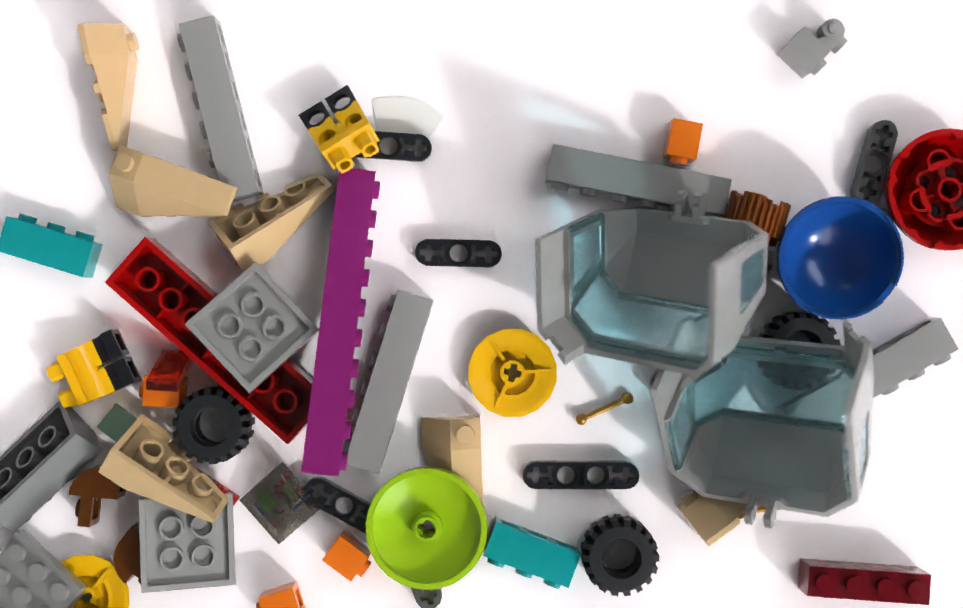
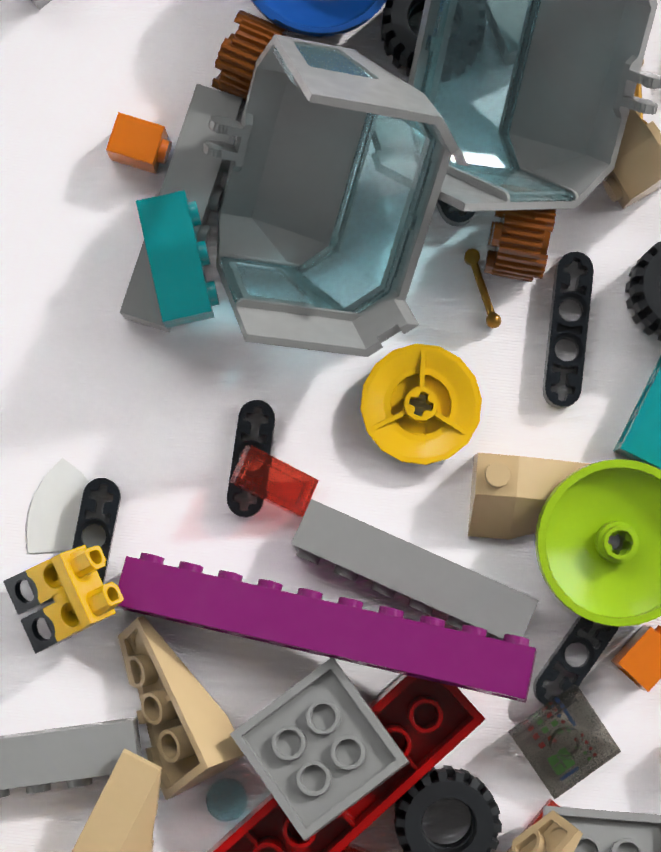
camera: 90 degrees left, 5 degrees down
(212, 265) = (226, 799): none -> clear light blue tile
(443, 271) = (274, 481): none -> clear red tile
(596, 181) = (177, 258): none -> teal brick
(637, 432) = (520, 243): none -> dark orange brick

